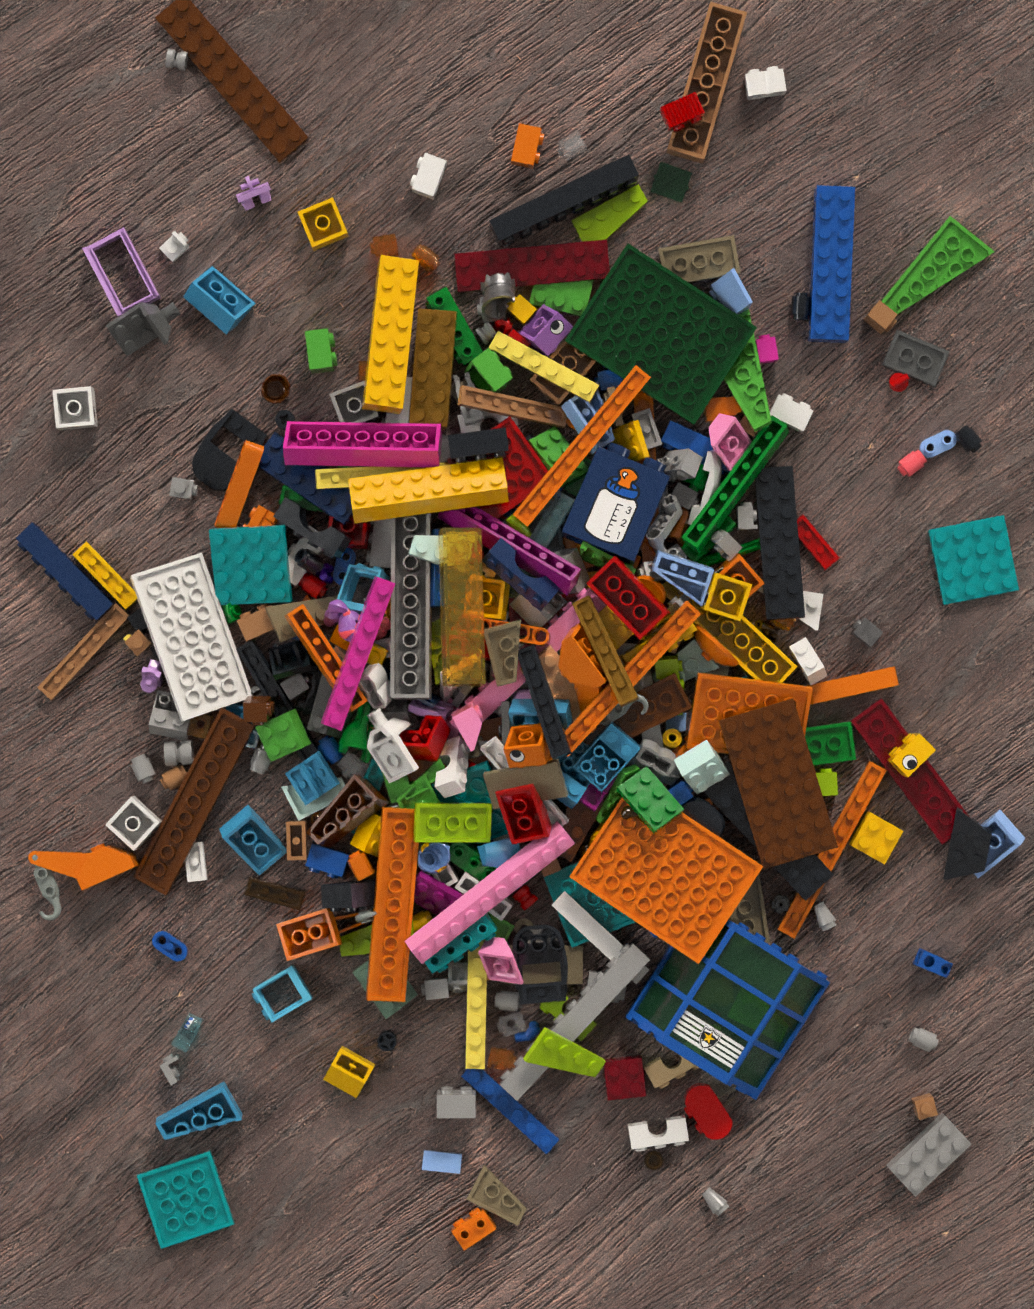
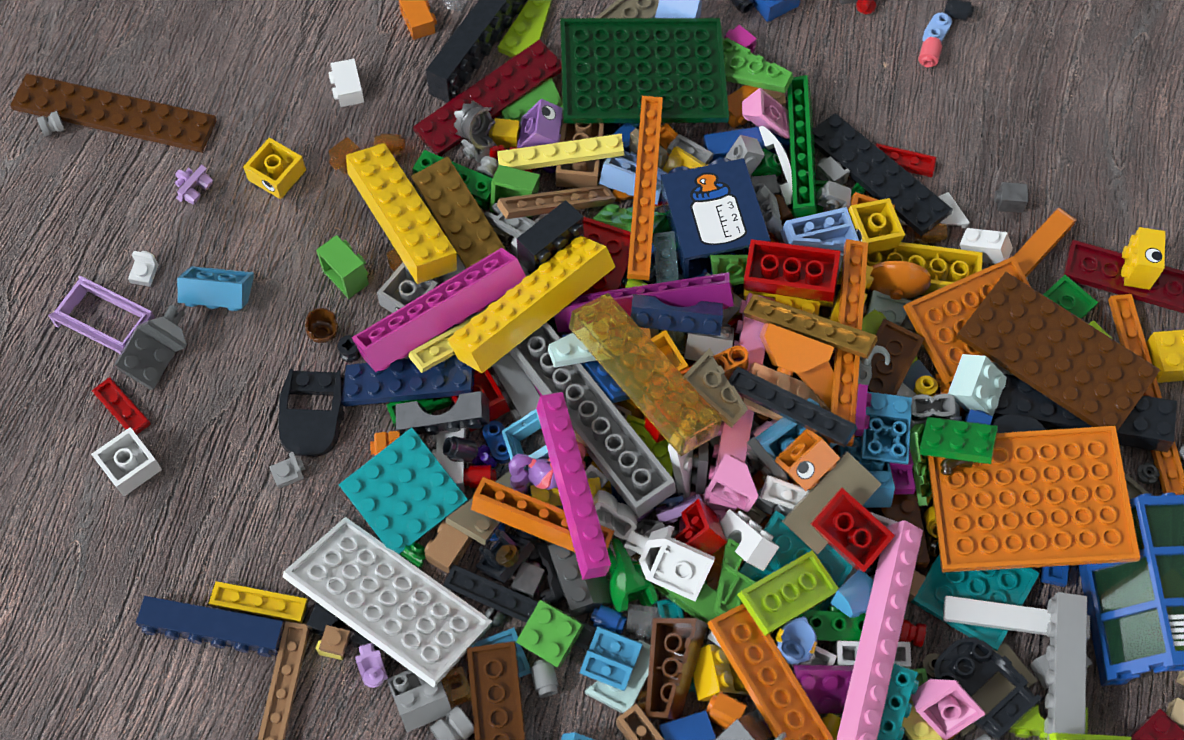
camera: 35 degrees left, 25 degrees down
(96, 355) = (120, 406): none -> red tile
(239, 485) = (342, 424): orange beam -> none
(258, 709) = (507, 621): reddish brown brick -> none
(287, 664) = (507, 555): none -> dark brown plate
(589, 742) = (863, 401): none -> magenta plate
(791, 413) = (808, 67): white brick -> none
(973, 560) = (1044, 93): teal plate -> none

